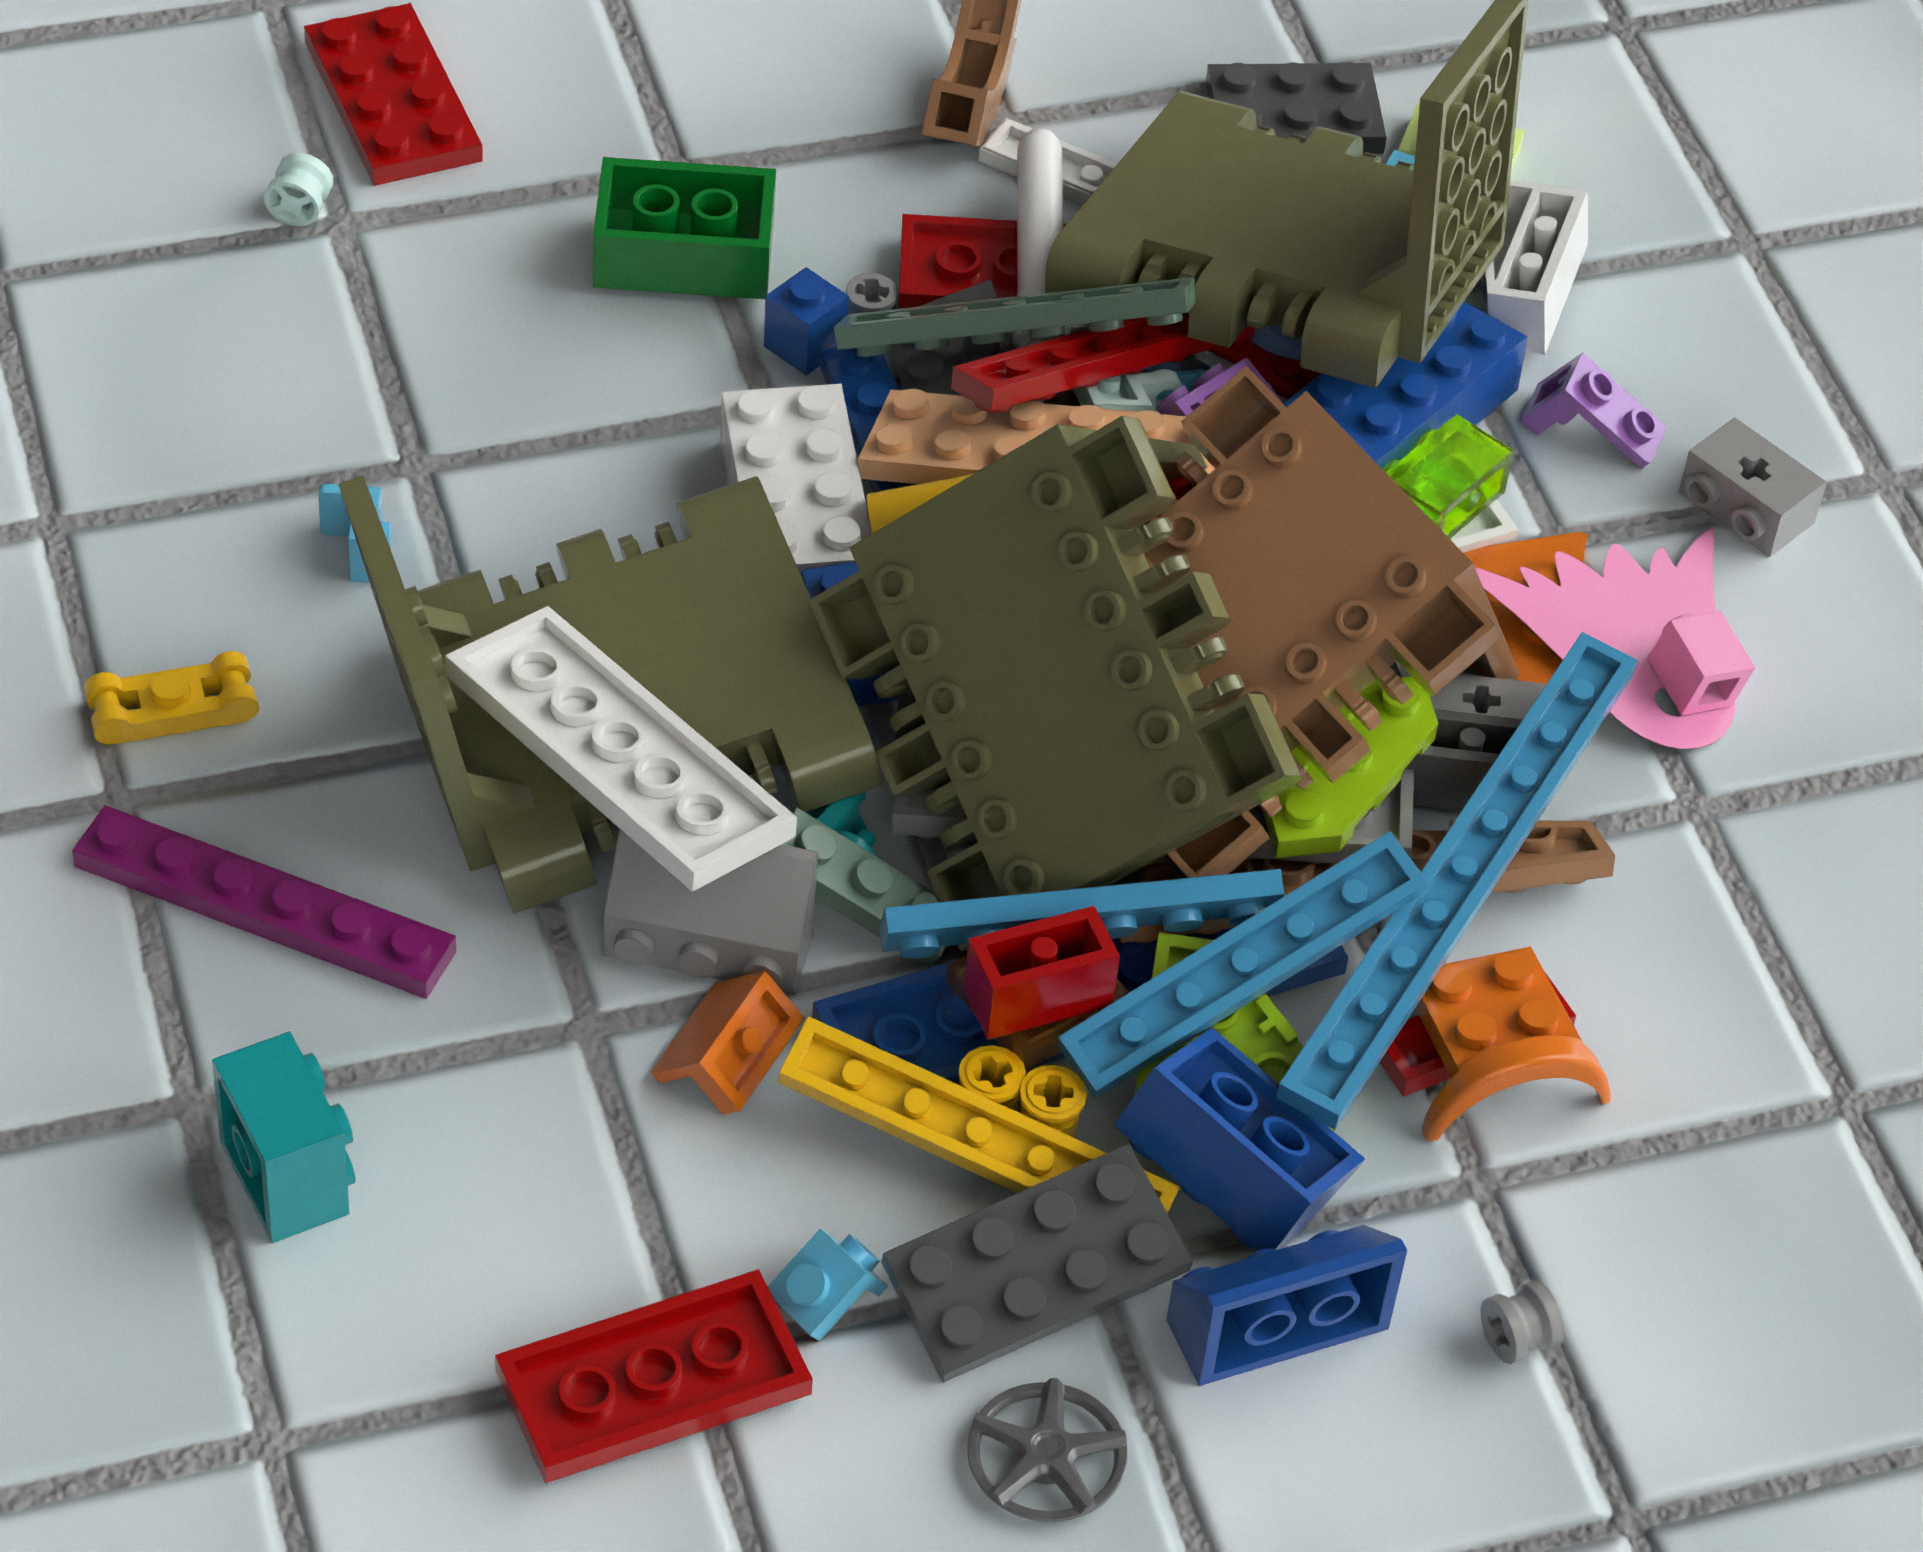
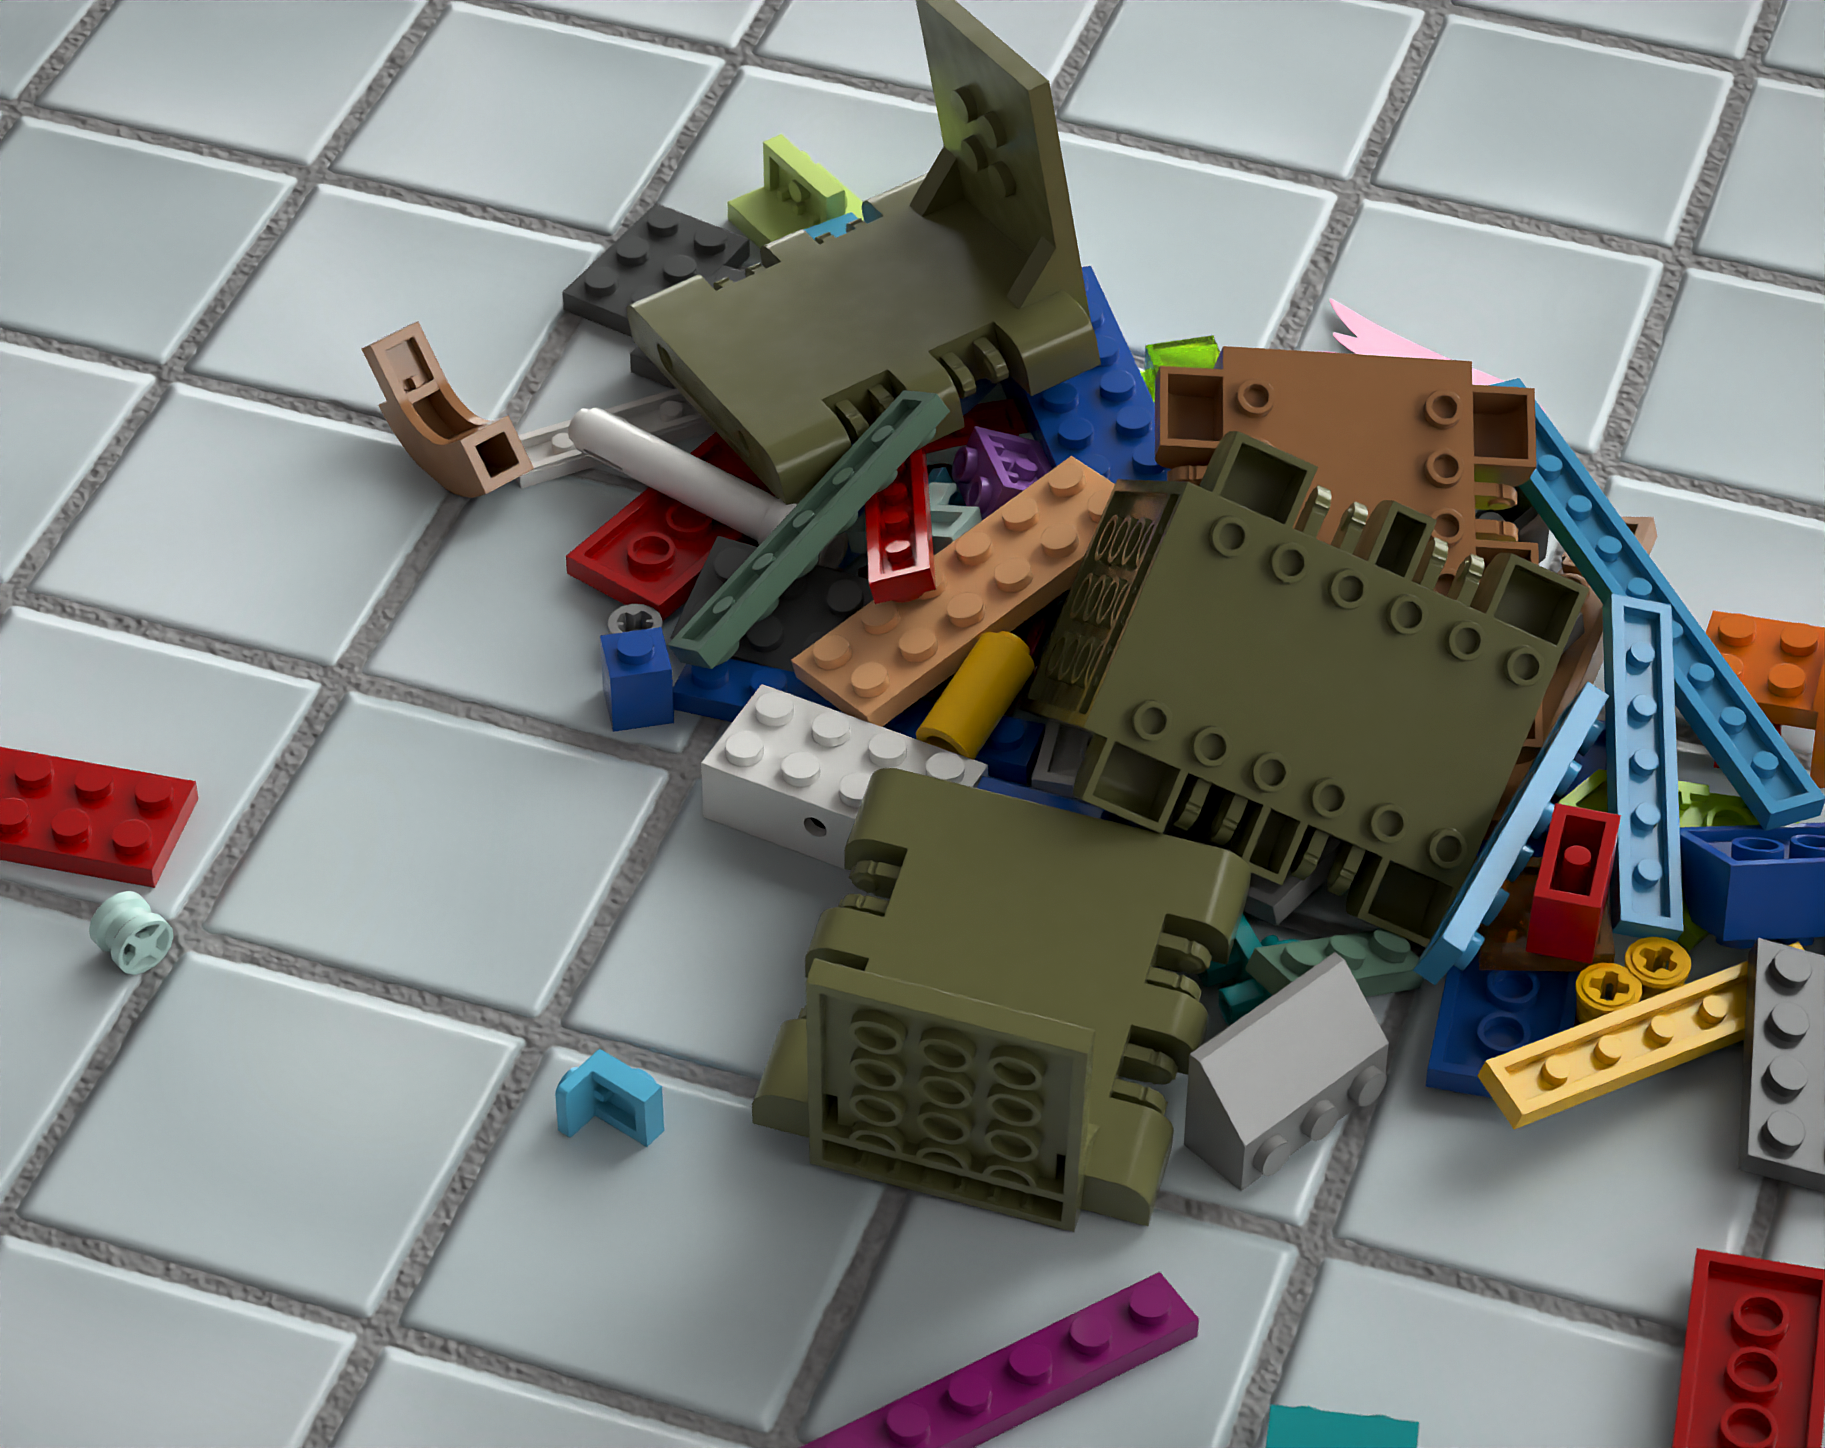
camera: 50 degrees left, 5 degrees down
(171, 700) = (696, 1340): yellow plate -> none
(621, 748) = (1176, 1002): white plate -> none
(684, 228) = (456, 695): green brick -> none
(731, 1039) = (1413, 1149): orange panel -> none
(825, 1281) = (1733, 1212): medium azure bracket -> none
(1591, 392) = (1146, 279): medium lavender bracket -> none
(1701, 662) = (1493, 354): bright pink brick -> none
(1752, 486) = (1319, 250): light grey brick -> none

